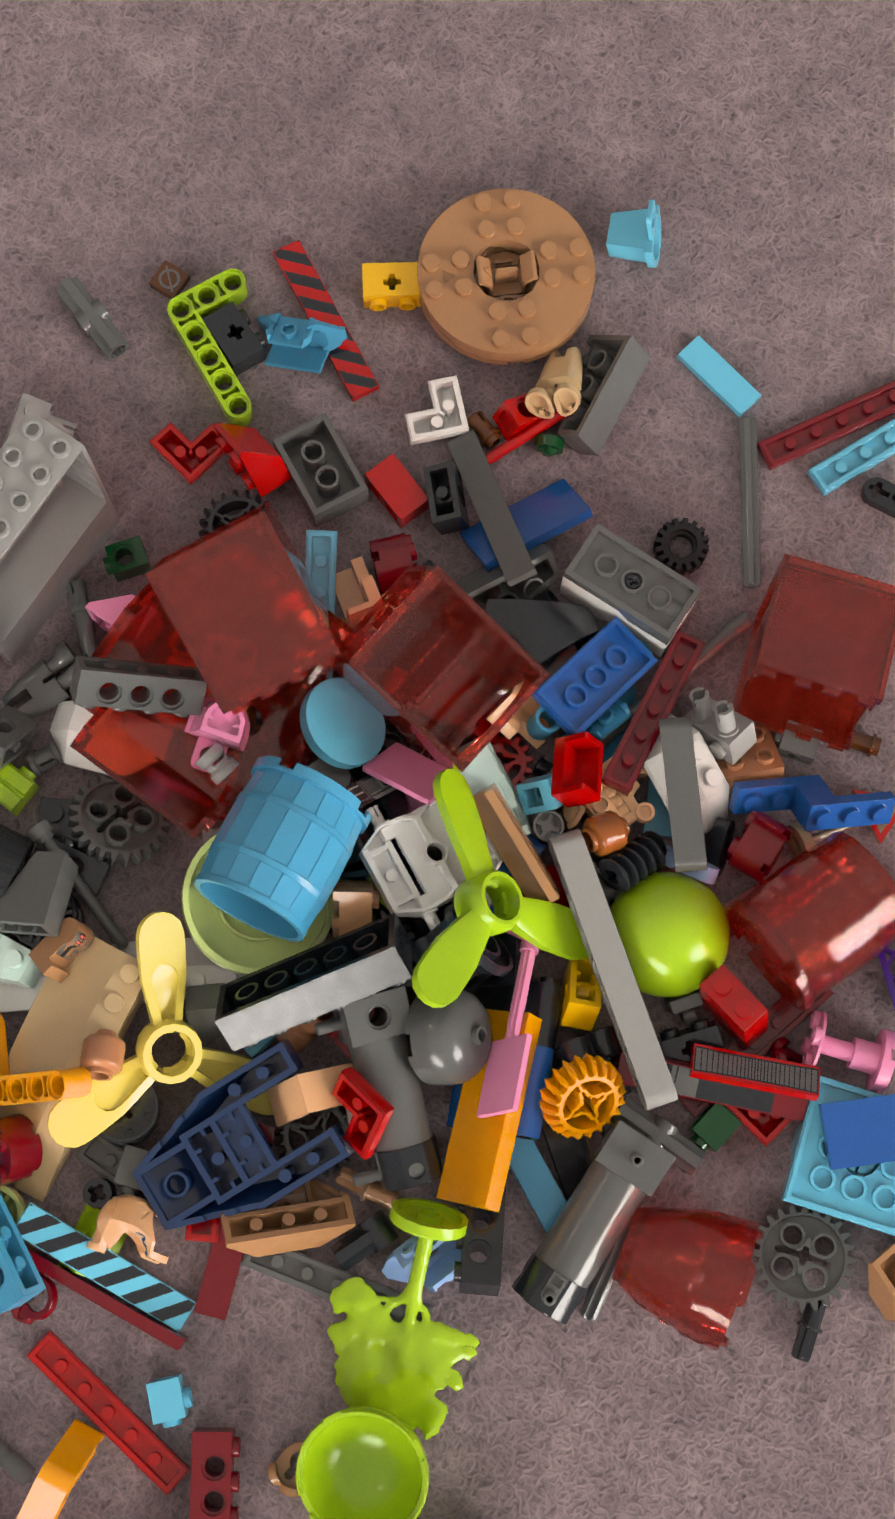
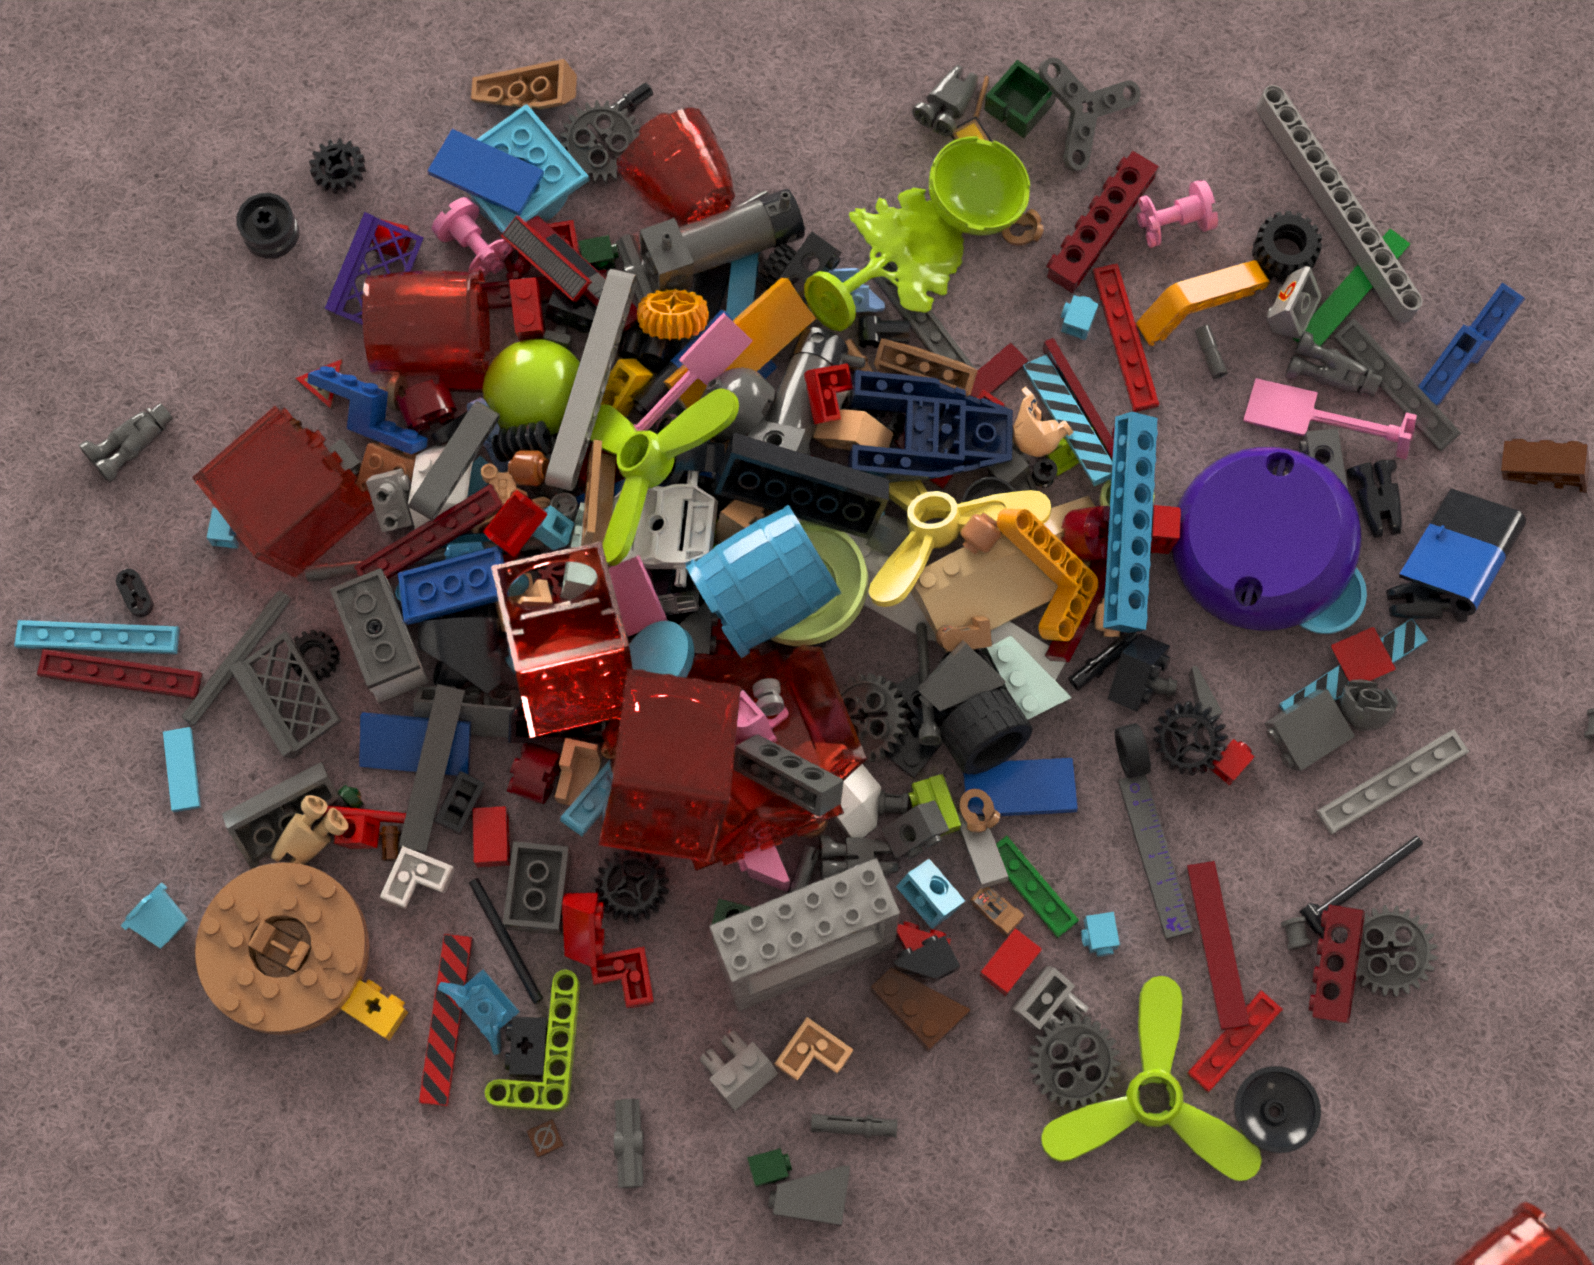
camera: 140 degrees left, 5 degrees down
(313, 412) = (505, 940): none -> black piece
(516, 1235) = (775, 265): none -> black tyre
(683, 473) = (269, 711): none -> dark grey fence

